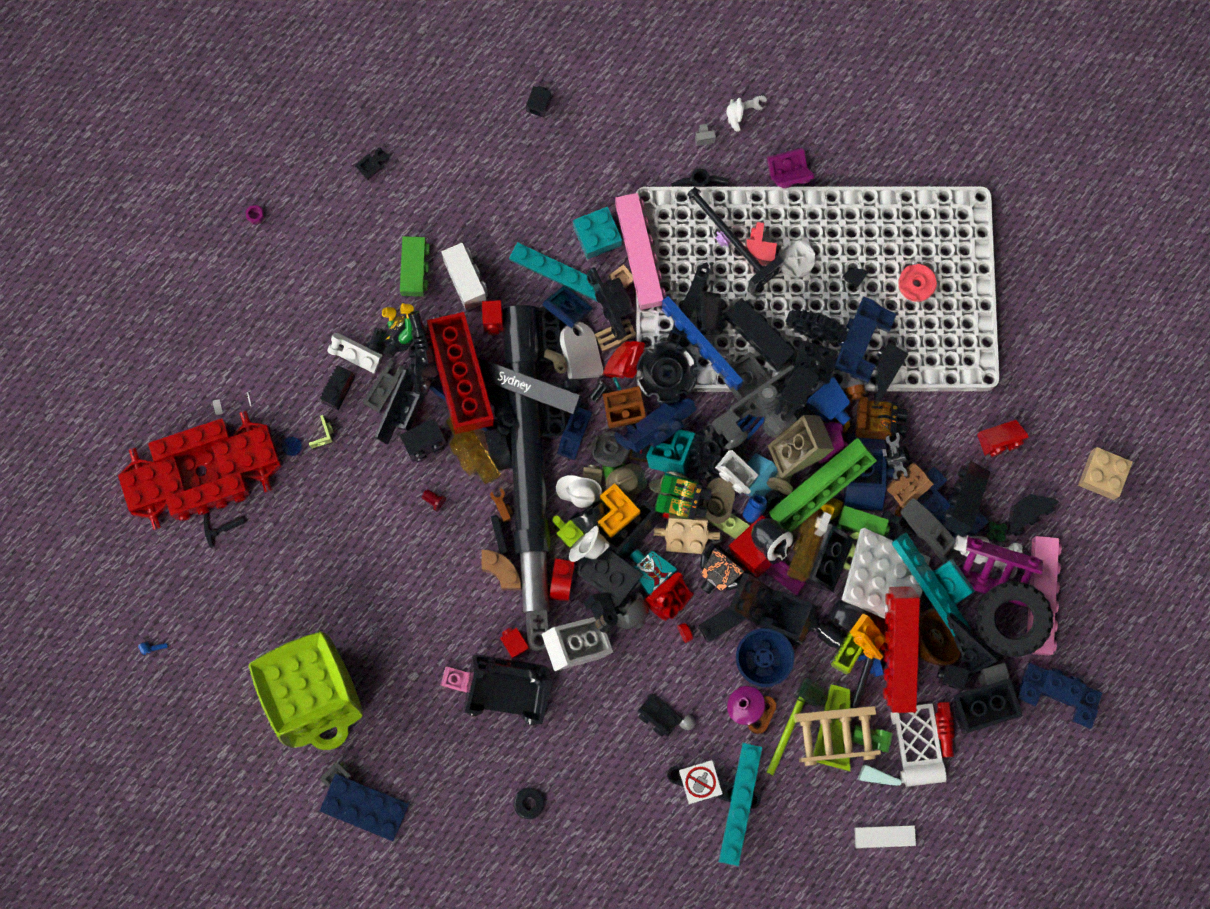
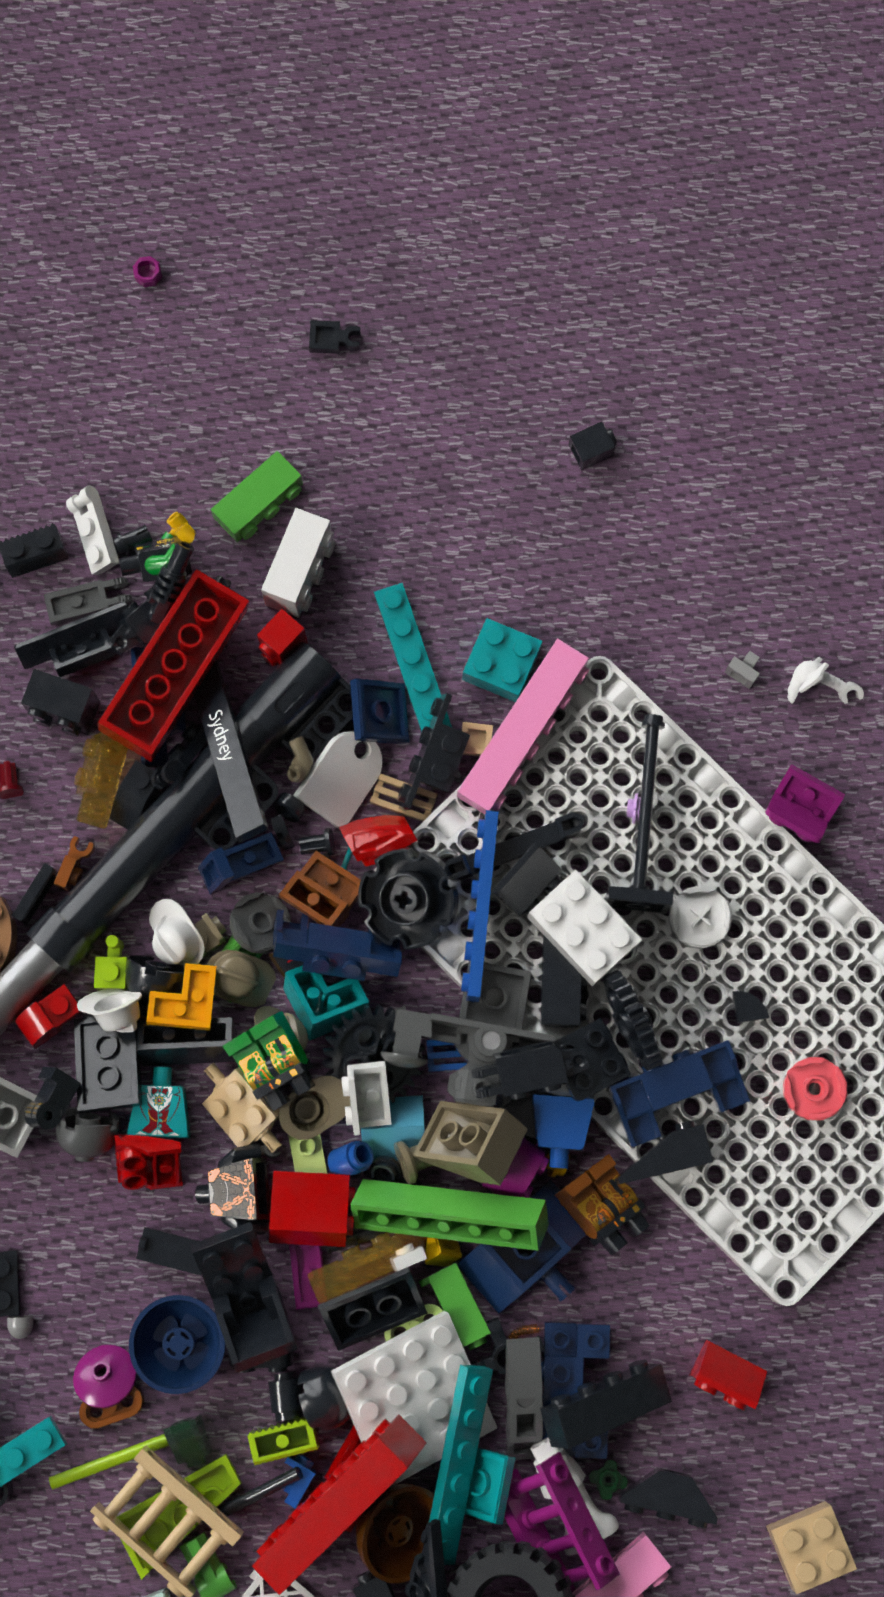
camera: 50 degrees right, 0 degrees up
(685, 632) = (124, 1219): red tile -> none
(702, 173) = (692, 704): black piece -> none
(757, 308) = (584, 928): none -> white brick
(761, 250) = (663, 866): coral brick -> none
(767, 535) = (322, 1206): black piece -> none
(855, 392) = (602, 1142): dark orange plate -> none
(868, 637) = (317, 1446): light orange bracket -> none
(897, 456) = (575, 1270): black pin -> none
(910, 487) = (556, 1319): medium nougat bracket -> none

